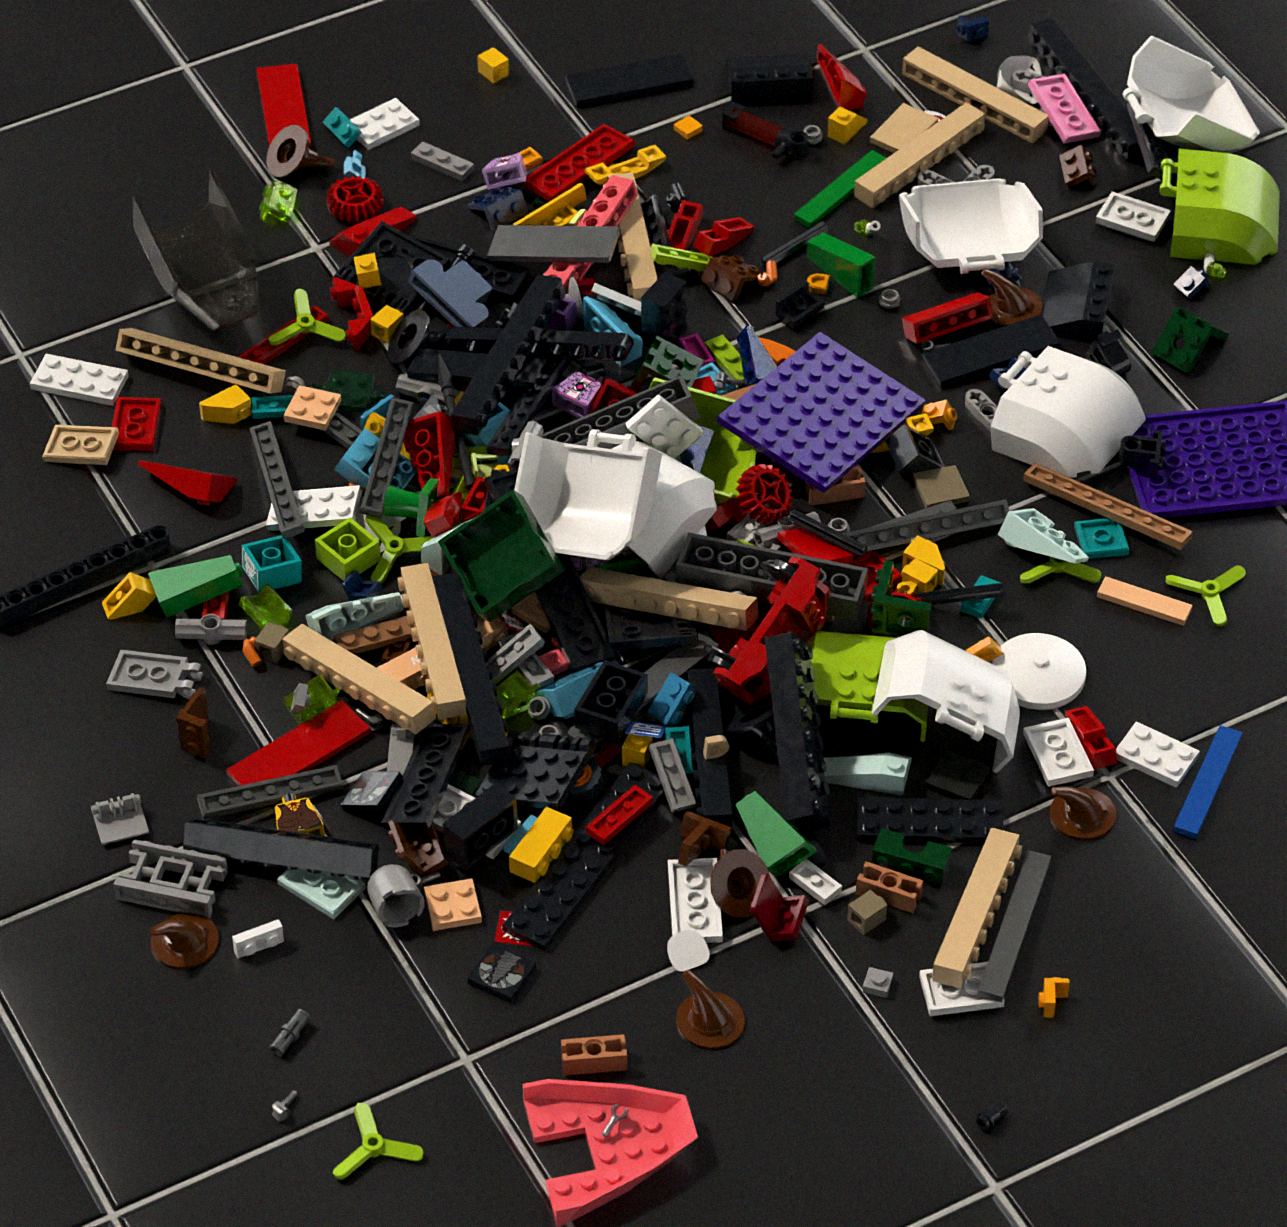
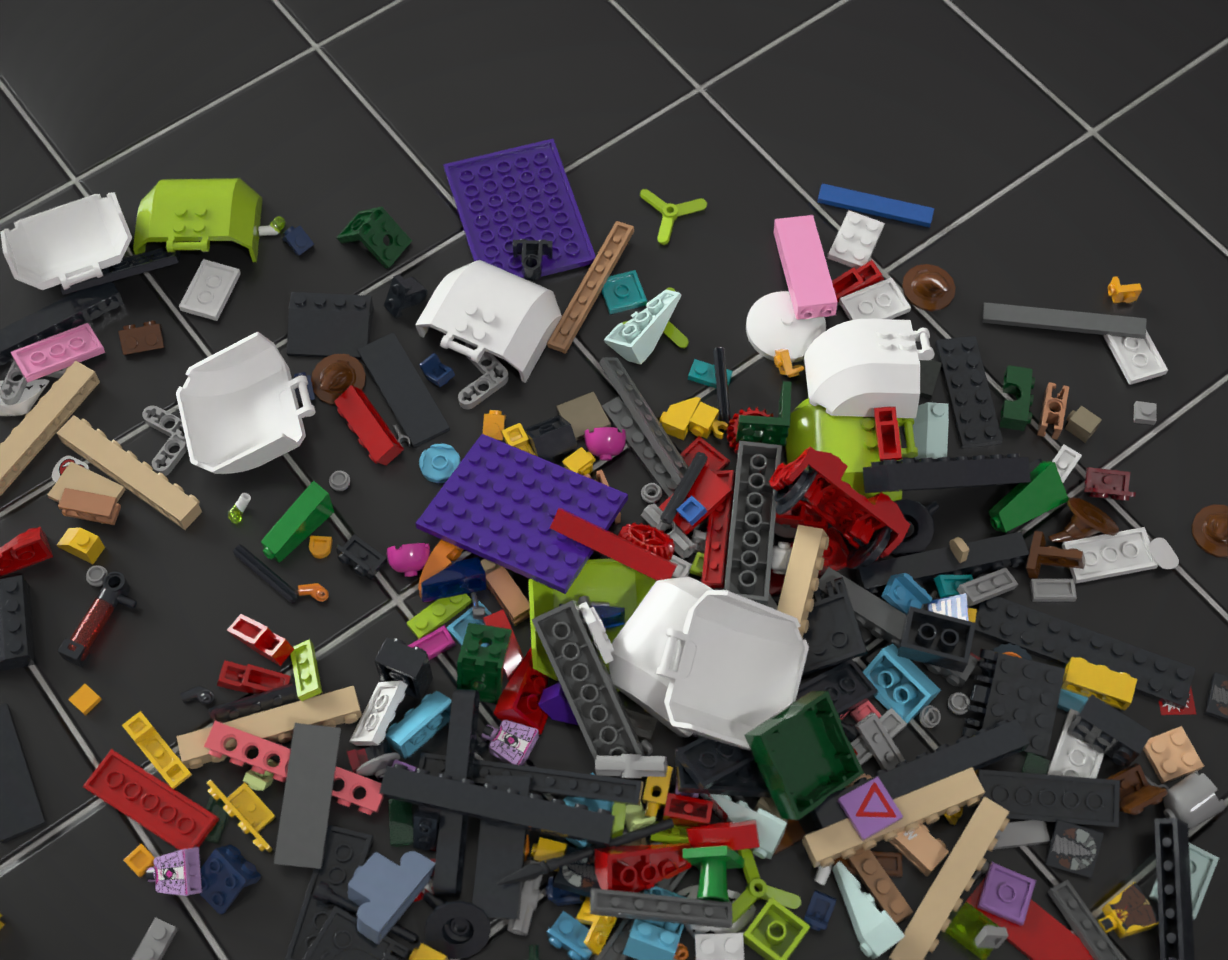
camera: 100 degrees left, 15 degrees up
(340, 727) = (1006, 894): none -> medium lavender tile
(440, 609) = (870, 808): none -> medium lavender tile
(513, 693) = (921, 737): clear neon green bracket -> none
(619, 814) = (1048, 622): red plate -> none
(663, 844) = (1053, 590): none -> light grey tile
(713, 455) = (586, 599): none -> flat silver hand
(729, 275) = (320, 624): reddish brown bracket -> none
(757, 452) = (612, 545): none -> red tile
(789, 332) = (408, 558): none -> dark pink cylinder
(796, 531) = (691, 510): none -> blue plate
(837, 191) = (179, 540): green tile -> none
(844, 669) = (887, 433): none -> red slope
(878, 472) = (580, 462): none -> yellow window
(881, 123) = (89, 506): none -> nougat piece
(900, 491) = (605, 442): none -> dark pink cylinder
(903, 371) = (439, 462): none -> medium azure tile
(976, 908) = (1062, 344): tan brick -> none
(1111, 686) = (805, 267): none -> bright pink brick
(1144, 601) = (690, 257): light nougat tile -> none

